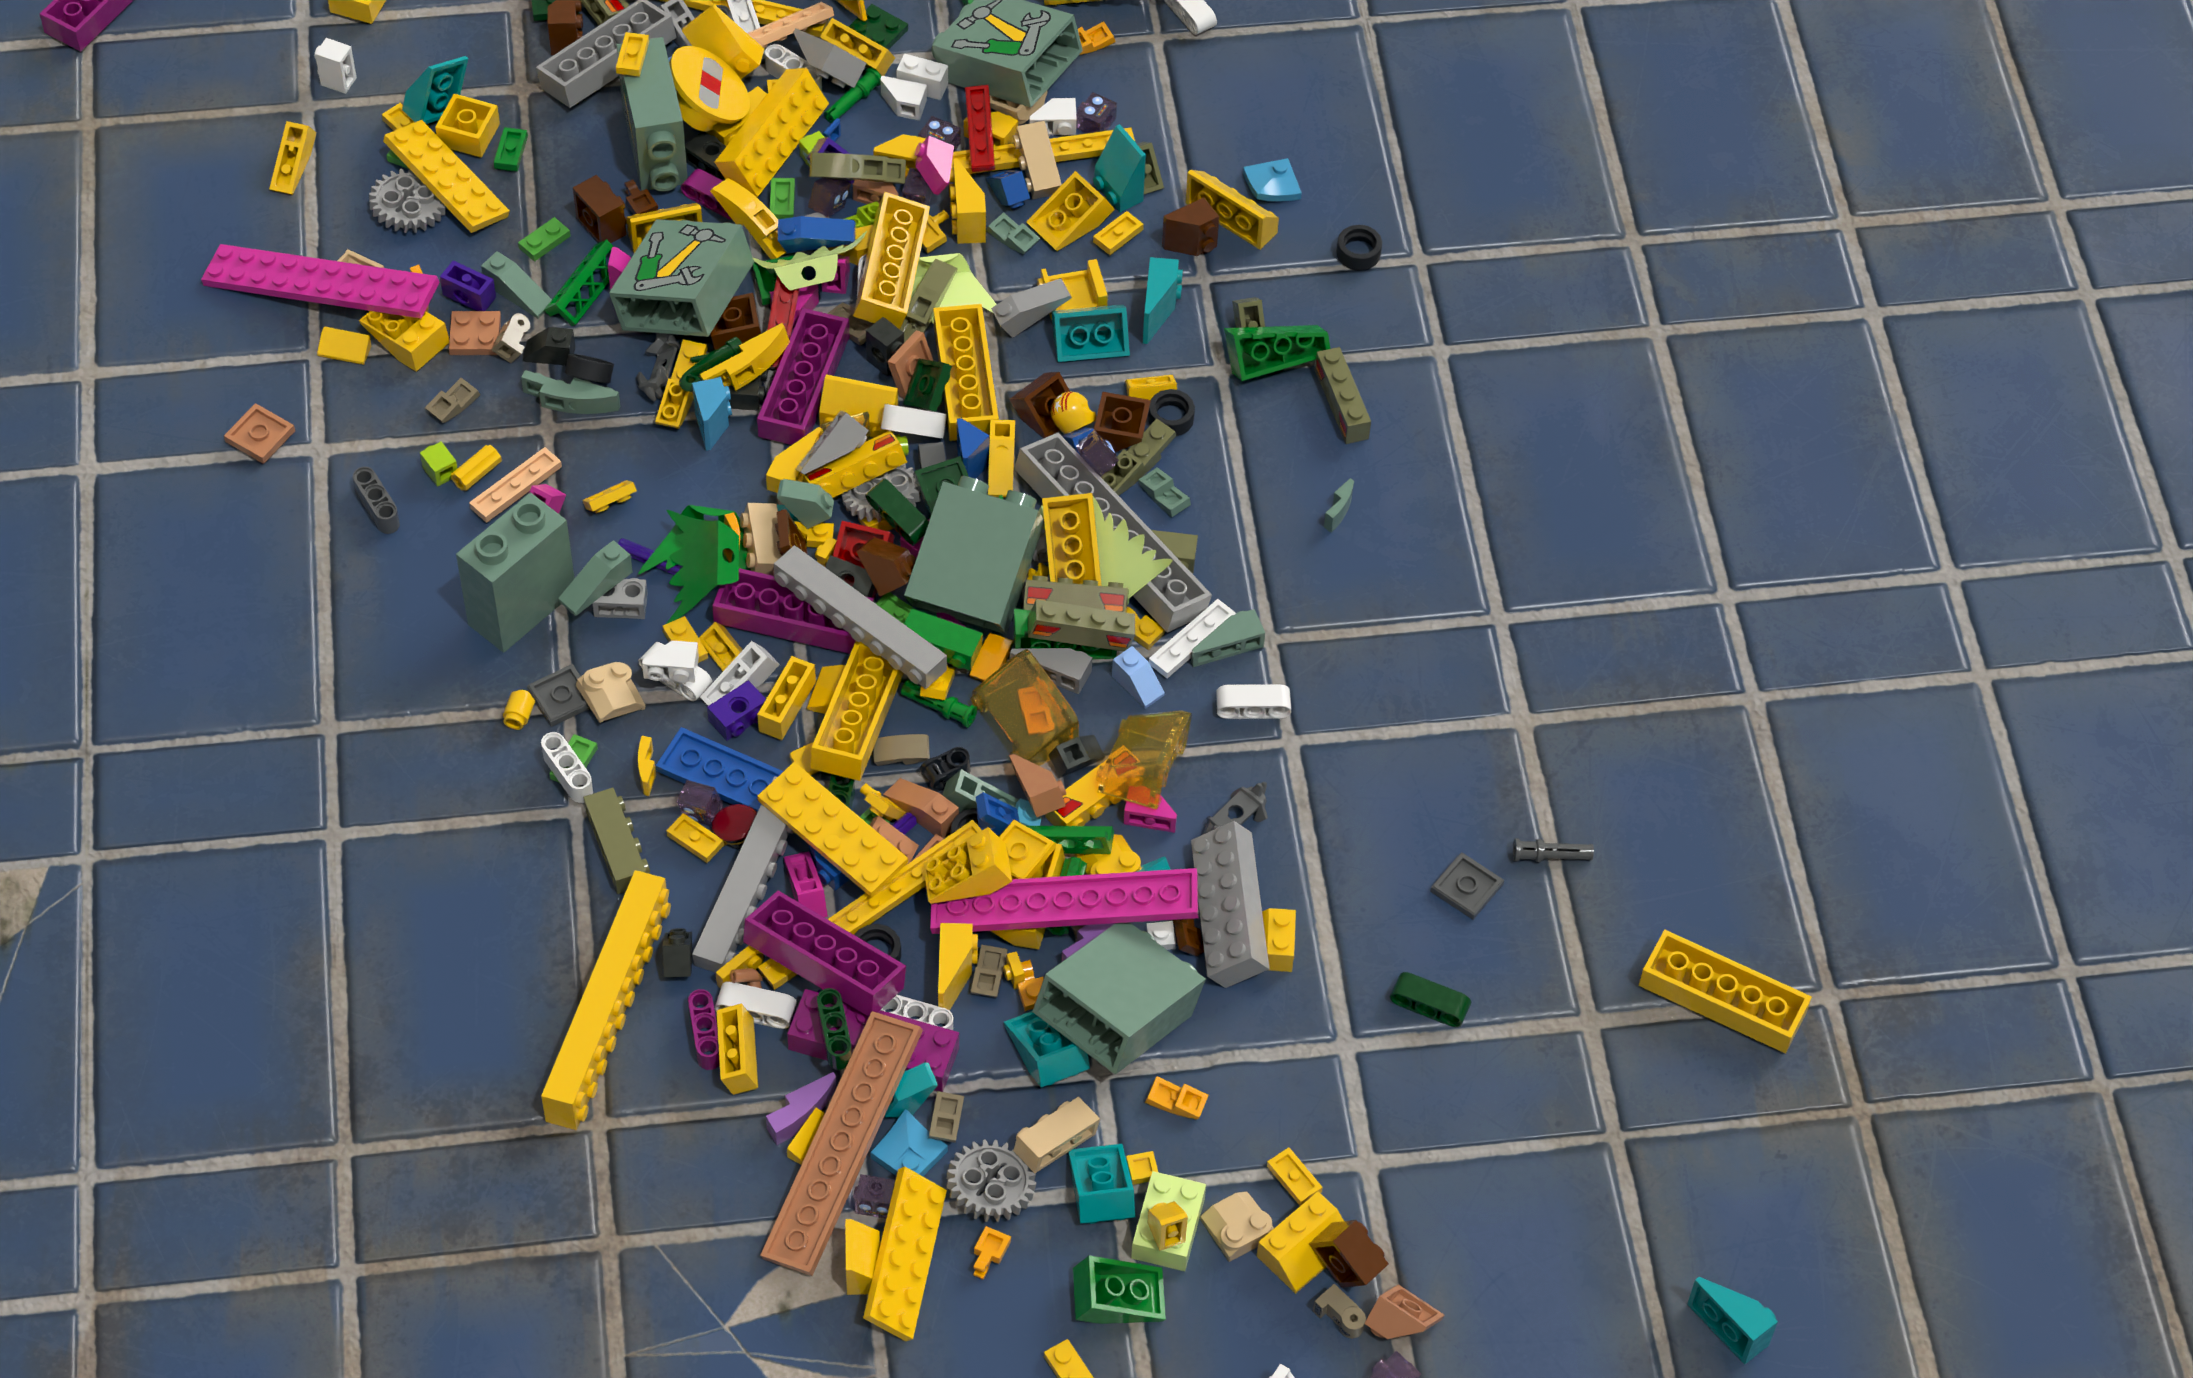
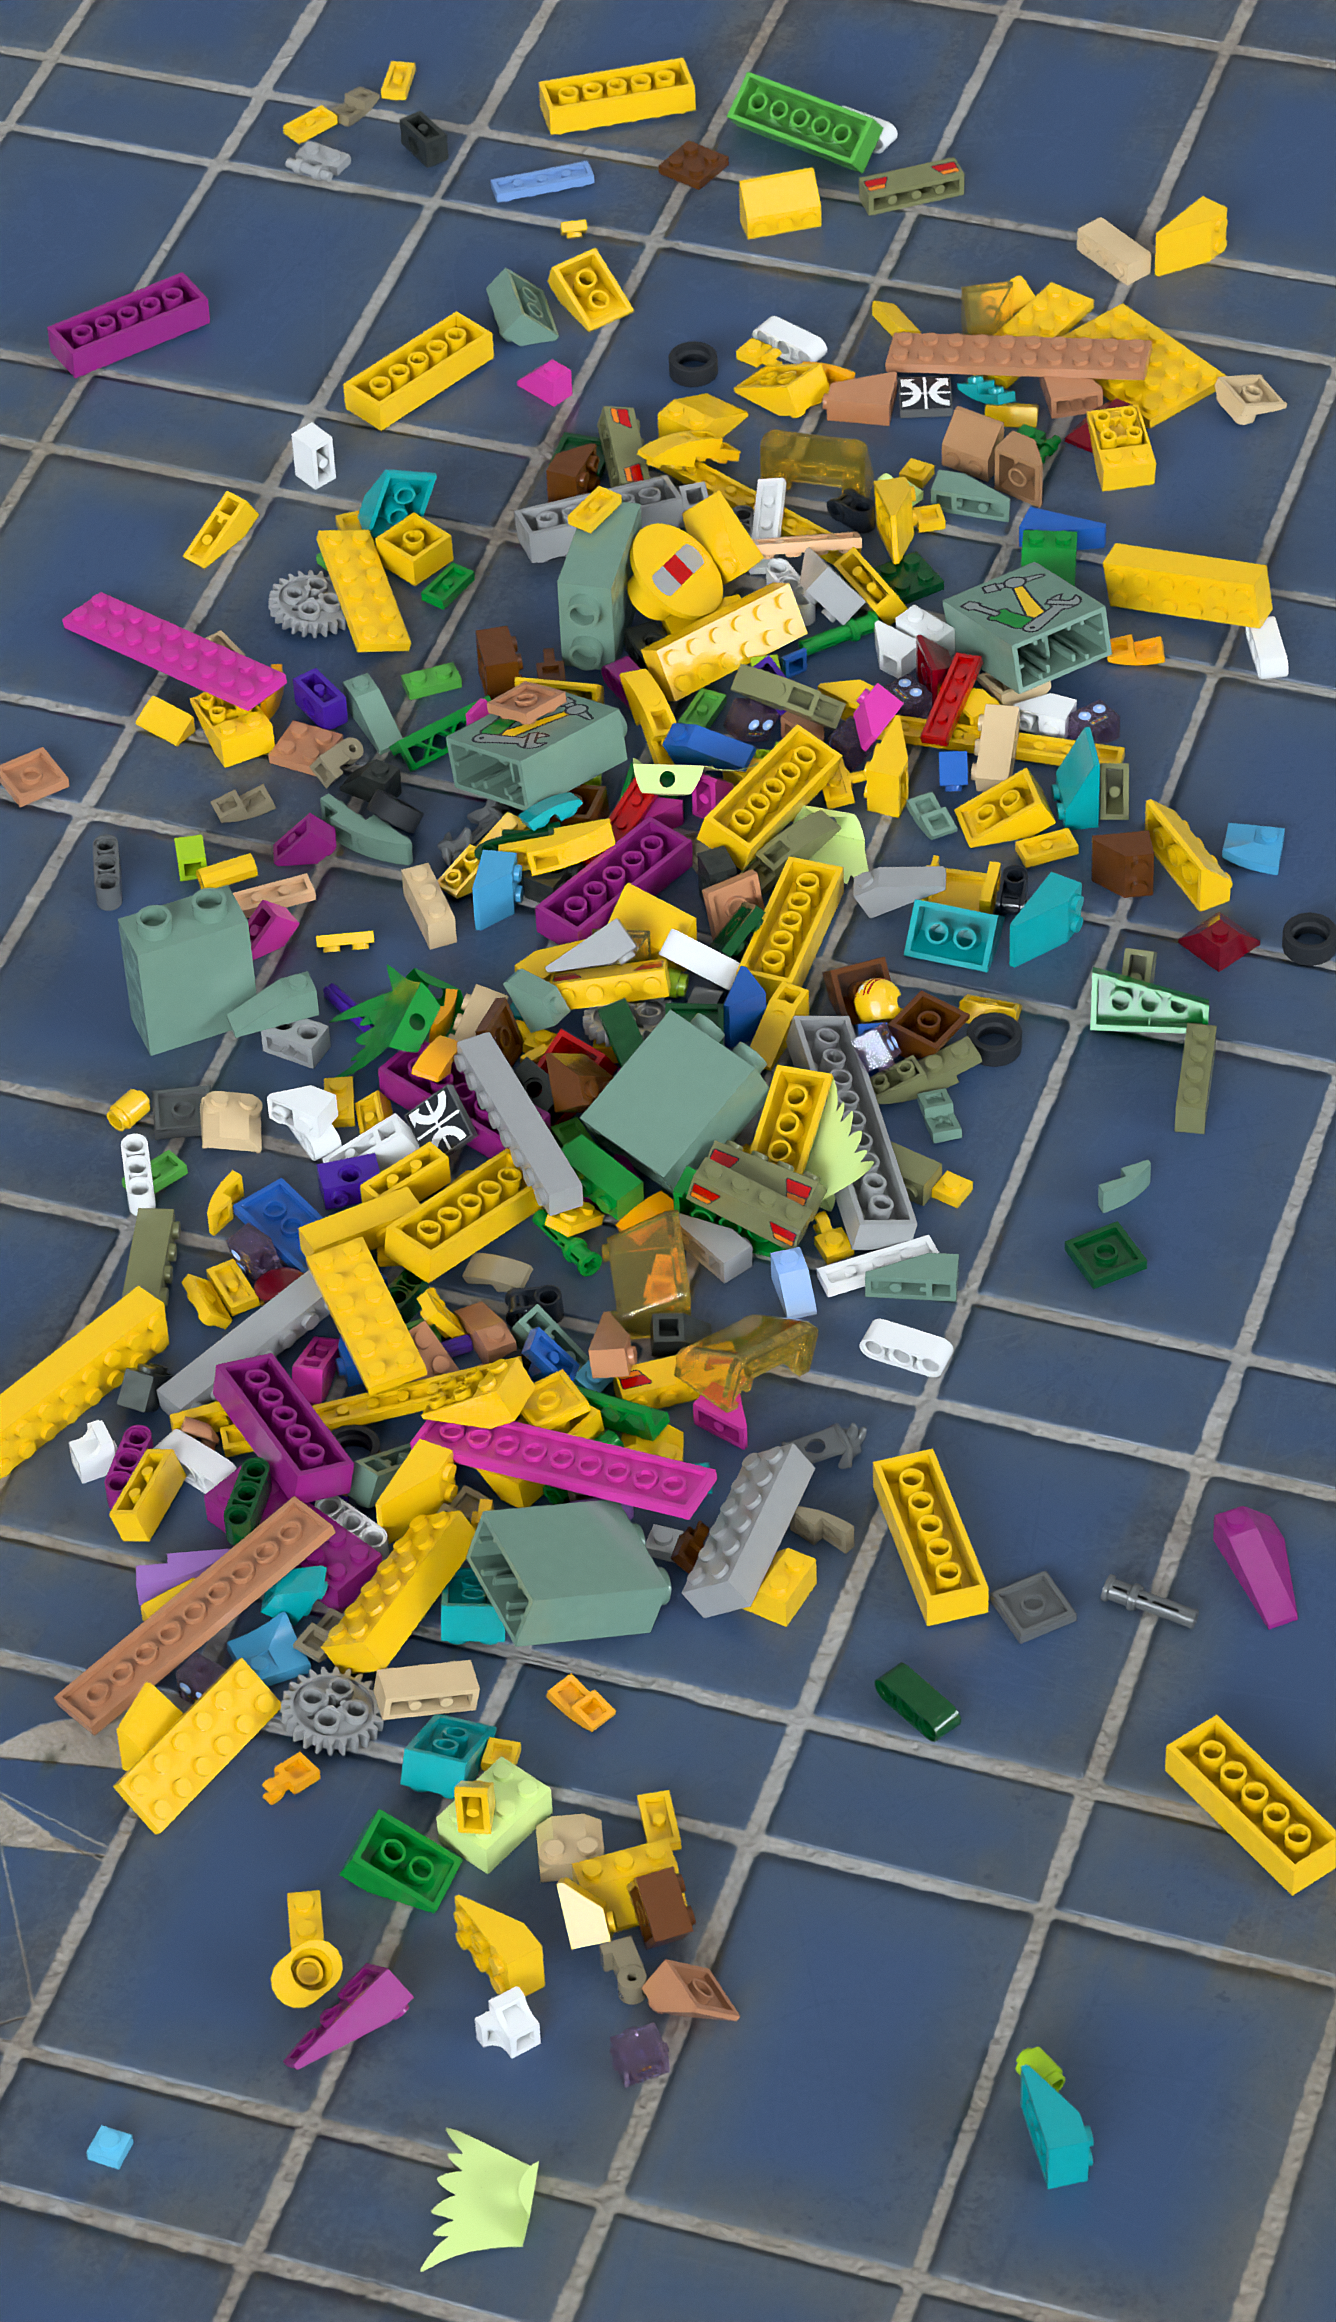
camera: 30 degrees right, 10 degrees down
(527, 420) = (305, 843): none -> magenta slope
(661, 241) = (526, 702): none -> nougat plate
(662, 443) = (429, 906): none -> tan brick
(669, 1027) = (93, 1452): none -> white brick
(676, 854) = (206, 1301): none -> yellow plate
(730, 324) = (560, 806): none -> teal slope
(760, 581) = (436, 1059): none -> light orange slope
(777, 750) = (364, 1220): none -> yellow brick
(789, 635) = (442, 1121): none -> tile
(917, 955) = (374, 1474): none -> sand green slope
(947, 104) = (931, 664): none -> dark red slope
(992, 1059) = (400, 1592): none -> yellow brick
(1116, 280) = (1012, 891): none -> black piece
(1209, 552) = (952, 1189): none -> yellow plate
(1241, 1334) = (500, 1947): none -> yellow slope
(1282, 877) = (816, 1524): none -> dark tan slope
(1289, 271) = (1219, 941): none -> dark red slope
(1293, 1281) = (585, 1915): none -> slope
(1357, 568) = (1105, 1255): none -> dark green plate
(1365, 857) = (930, 1537): none -> yellow brick
(1609, 785) = (1259, 1561): none -> magenta wedge
(1688, 1269) = (1042, 2065): none -> lime brick

